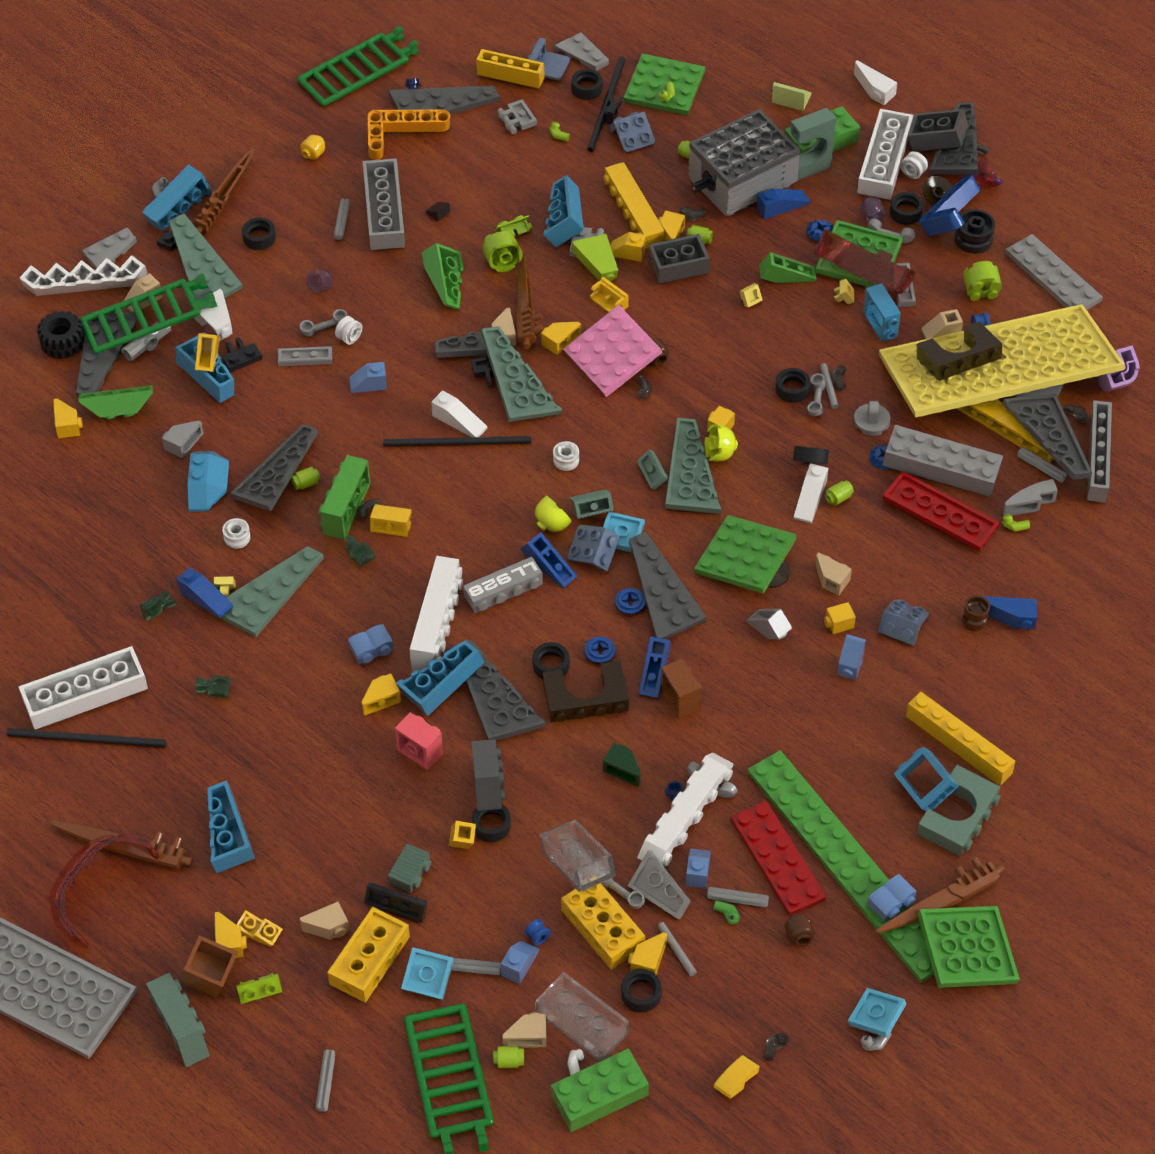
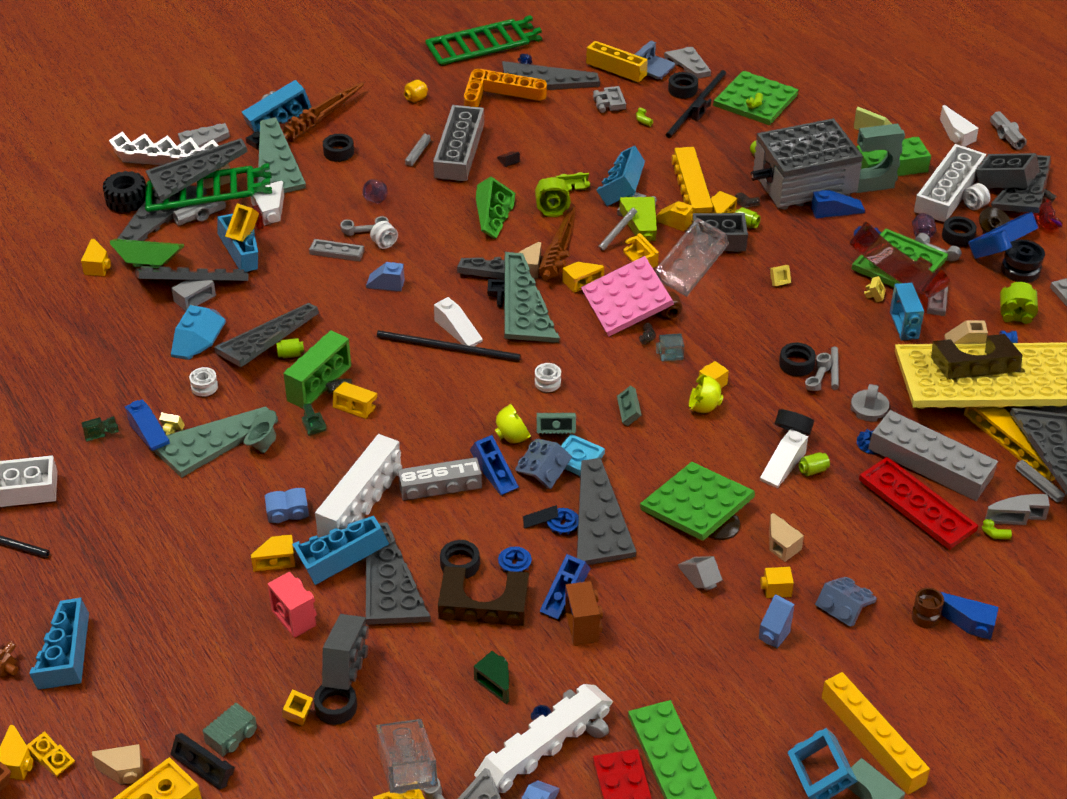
camera: 15 degrees right, 10 degrees down
(118, 302) = (181, 173): none -> dark grey wing
(164, 419) = (148, 272): none -> dark grey wing
(216, 687) = (120, 512): clear green plate -> none
(242, 357) = (279, 240): black hinge -> none
(317, 574) = (262, 432): none -> sand green piece
(579, 276) = (617, 229): none -> light grey bar
(608, 601) = (540, 516): none -> black sticker
(633, 131) = (712, 127): sand blue bracket -> none
(664, 295) = (692, 257): none -> clear brick
(671, 397) = (670, 347): none -> clear light blue brick
(690, 476) = (665, 419): sand green wing -> none
(785, 270) = (820, 260): bright green slope -> none
(837, 377) = (846, 360): clear smoke arm -> none
(925, 77) = (1008, 130): none -> light grey piece

